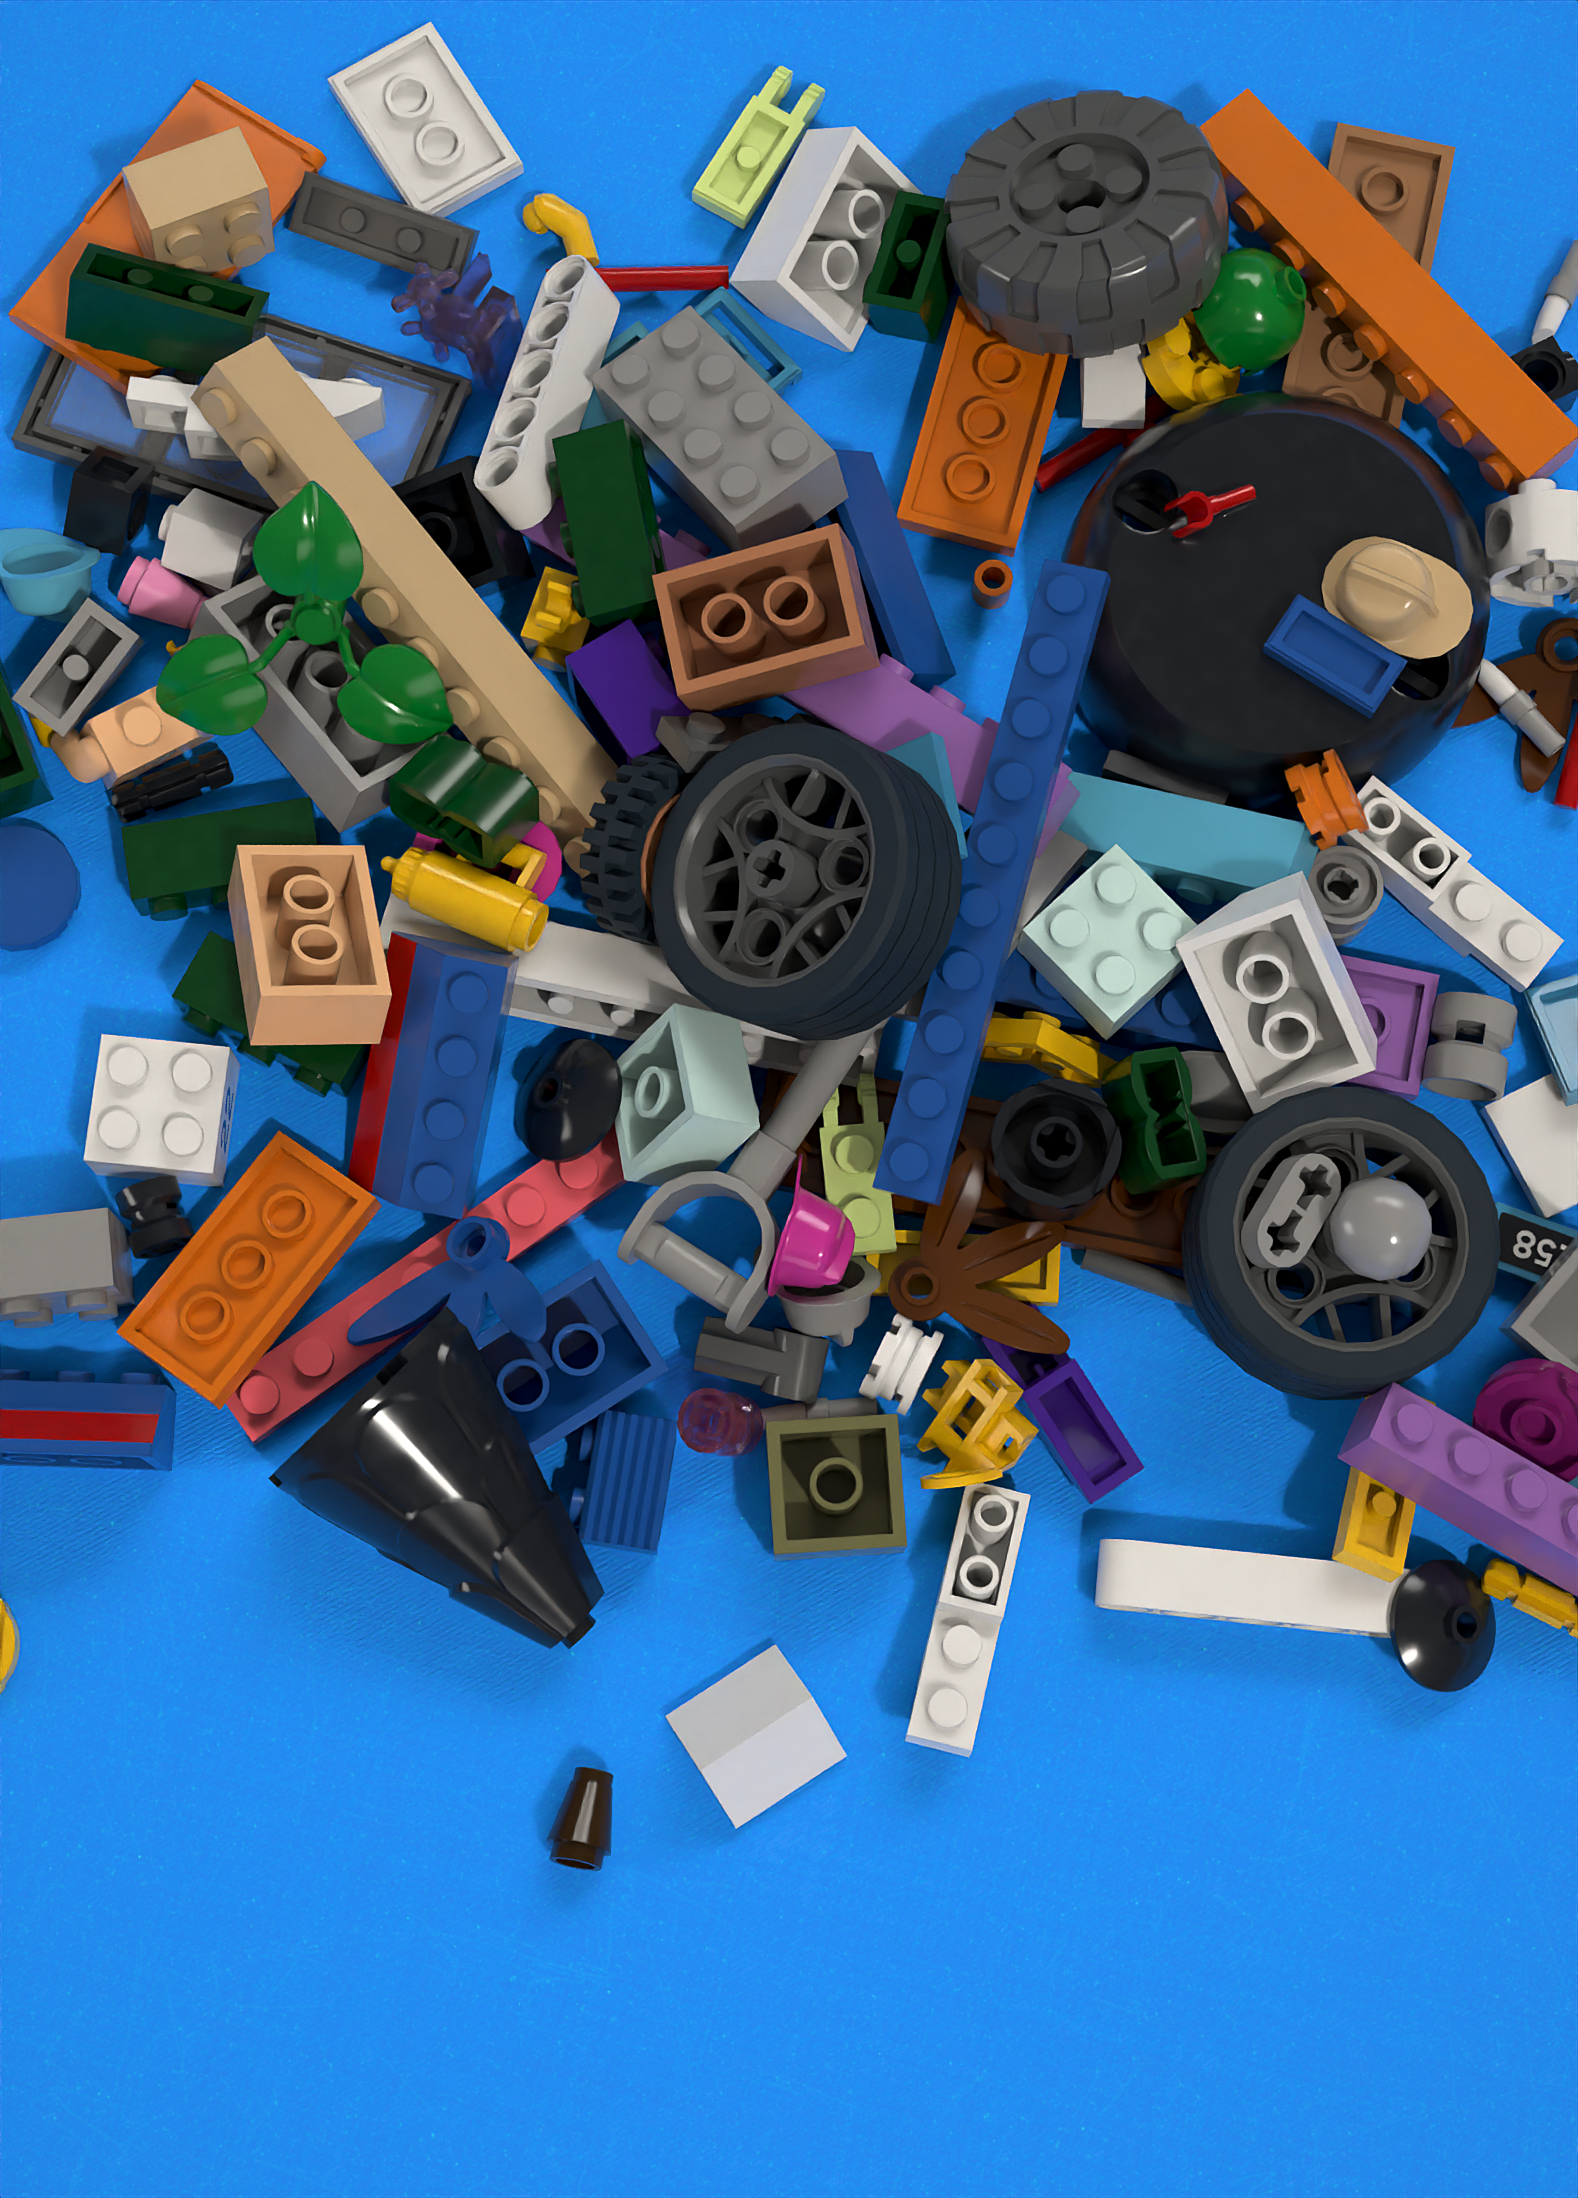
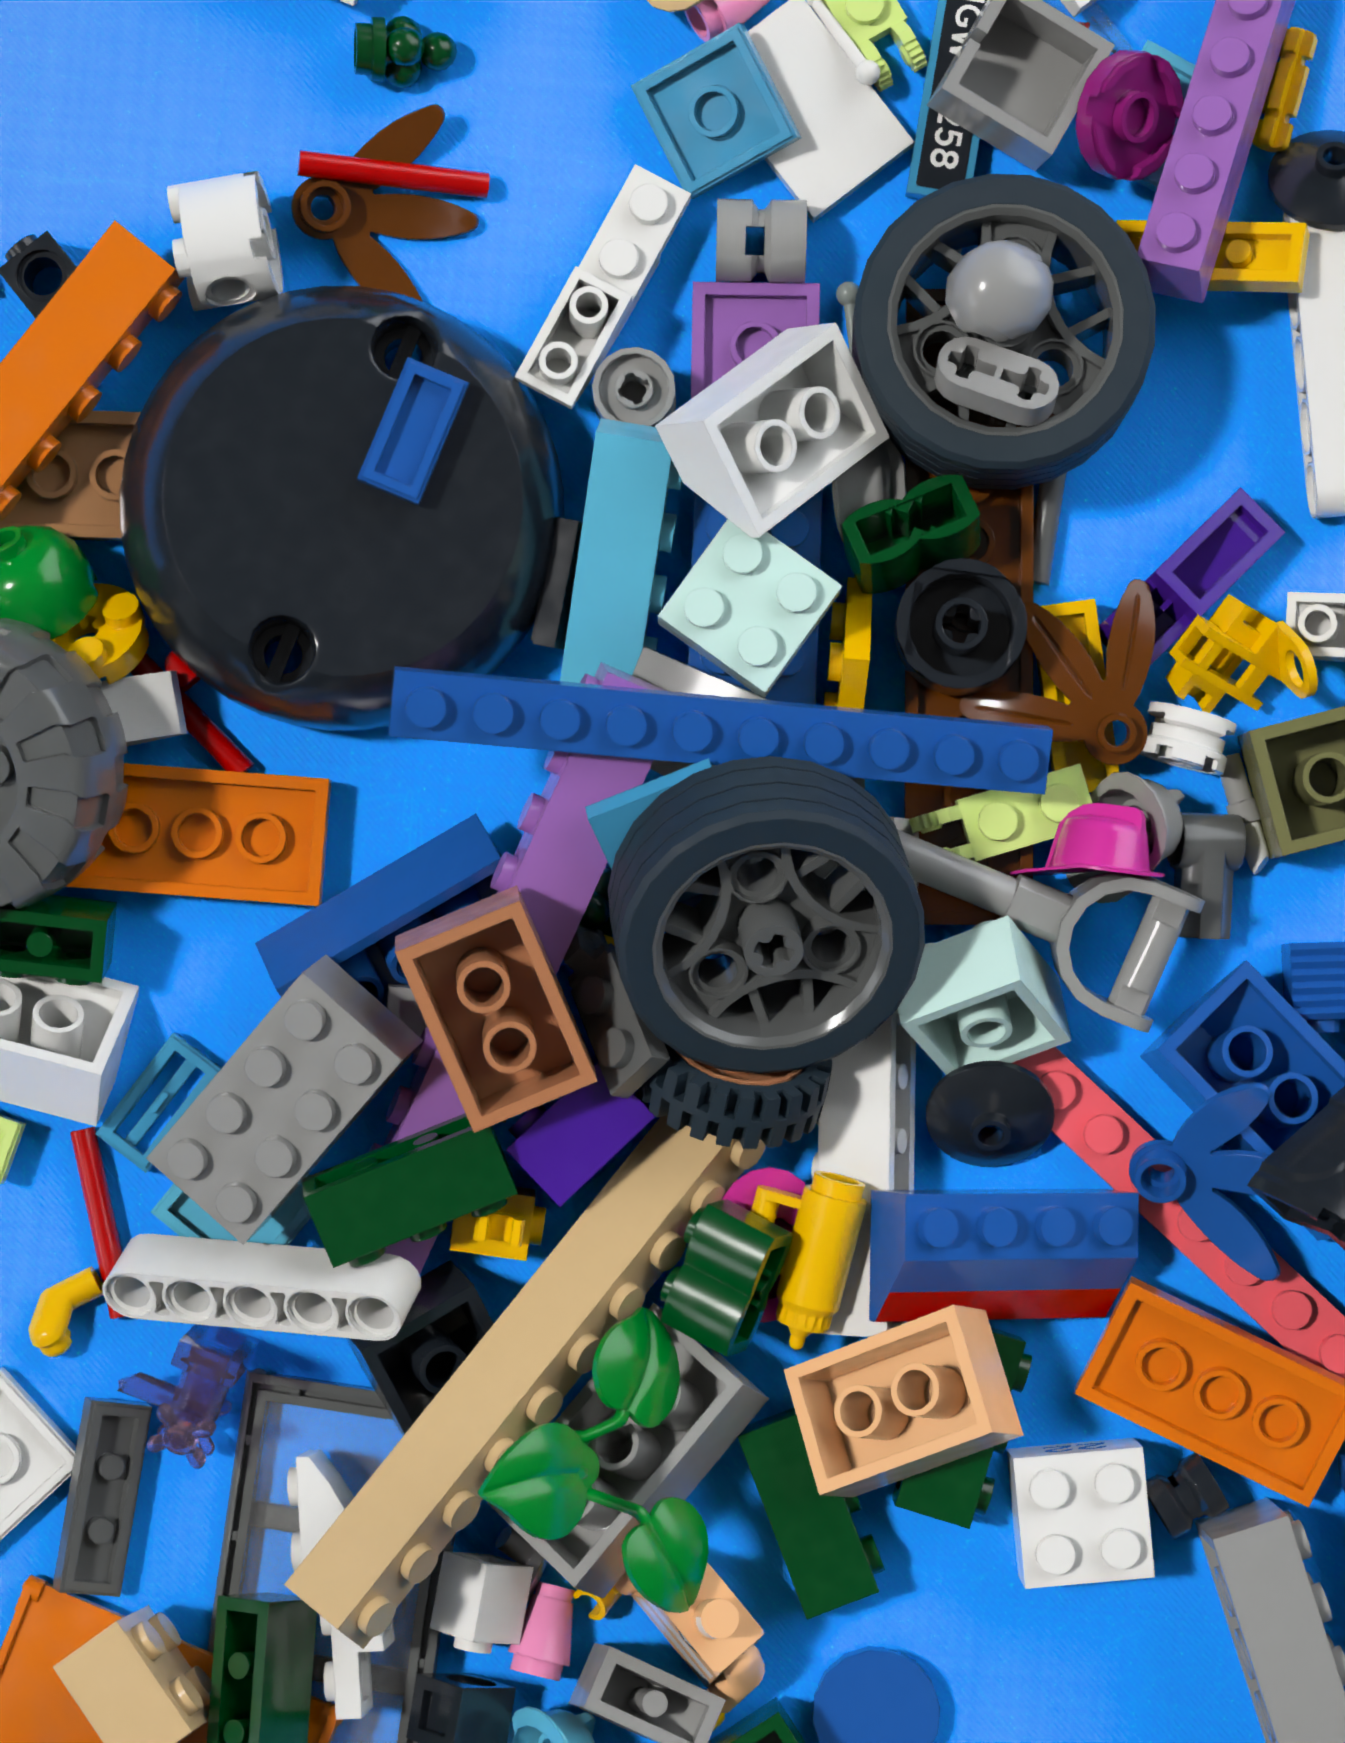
camera: 90 degrees left, 10 degrees up
(171, 786) = (742, 1579): black axle -> none
(734, 1427) = (1269, 890): clear pink wheel -> none
(996, 571) = (351, 796): orange piece -> none
(1202, 508) = (287, 588): red hand -> none
(1327, 799) = (561, 415): orange wheel -> none
(1398, 597) = (338, 378): tan piece -> none
(1519, 709) = (398, 243): light grey piece -> none

